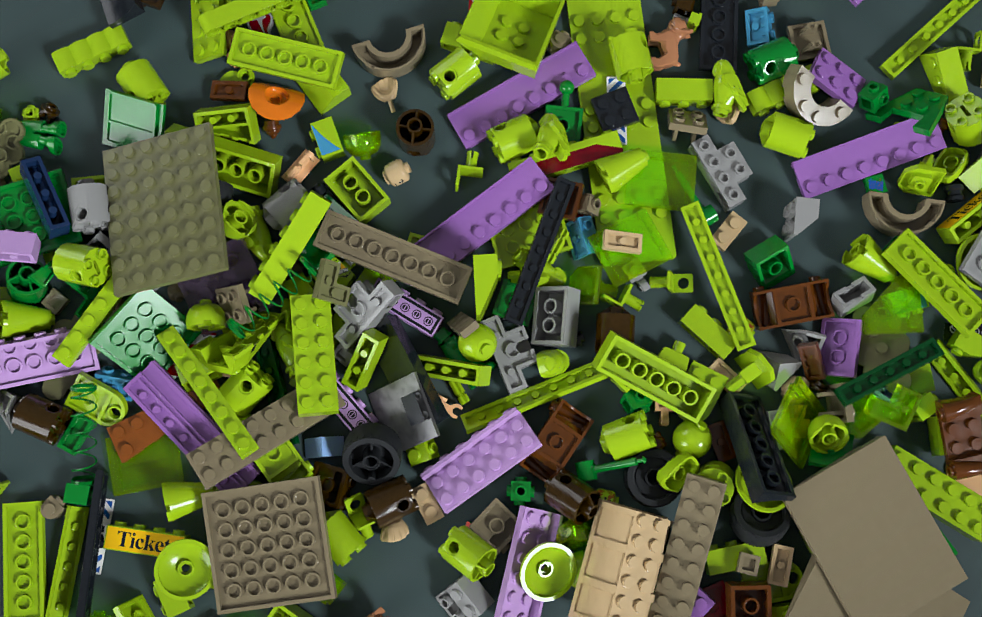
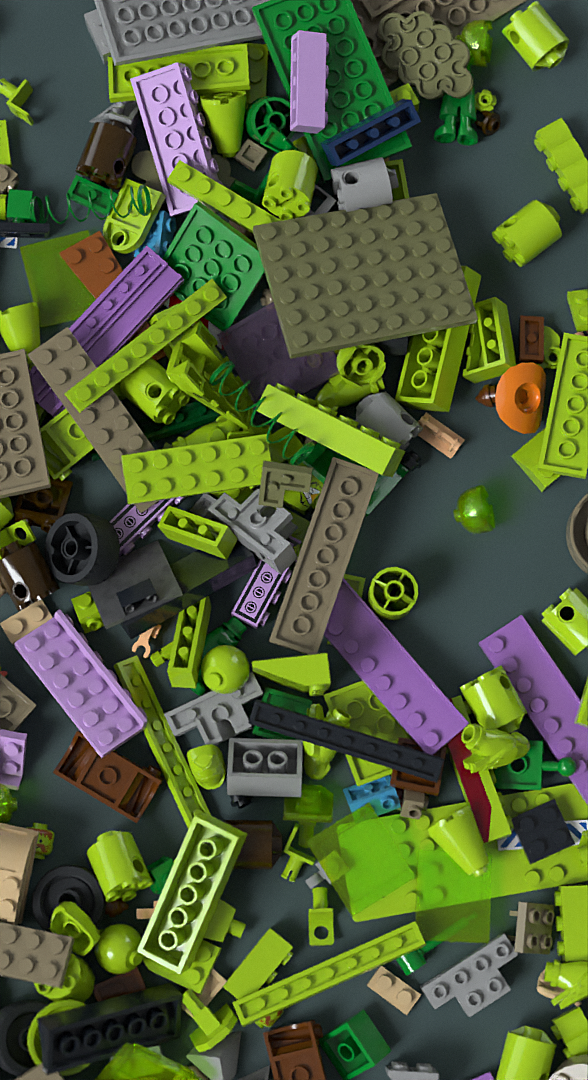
camera: 85 degrees right, 0 degrees up
(130, 118) = (481, 223): piece -> none
(205, 316) = (239, 335): lime cylinder -> none
(232, 302) = (256, 366): dark tan plate -> none
(324, 446) = (90, 491): light blue slope -> none
(327, 140) = (477, 465): lime brick -> none
(357, 191) = (411, 508): lime brick -> none
(386, 91) = (547, 535): tan piece -> none
(396, 172) = (440, 556): tan head -> none
(415, 132) = (503, 576): dark brown cylinder -> none
(424, 209) = (379, 593): none -> lime cylinder
(463, 324) = (245, 649): dark tan tile -> none
(469, 169) = (452, 648): lime bracket -> none
(512, 491) = (56, 735): green brick -> none
(557, 245) = (357, 765): lime axle -> none
(572, 497) = (39, 797): dark brown cylinder -> none
(588, 469) = (75, 819): green piece -> none
(622, 242) = (364, 846): tan plate -> none

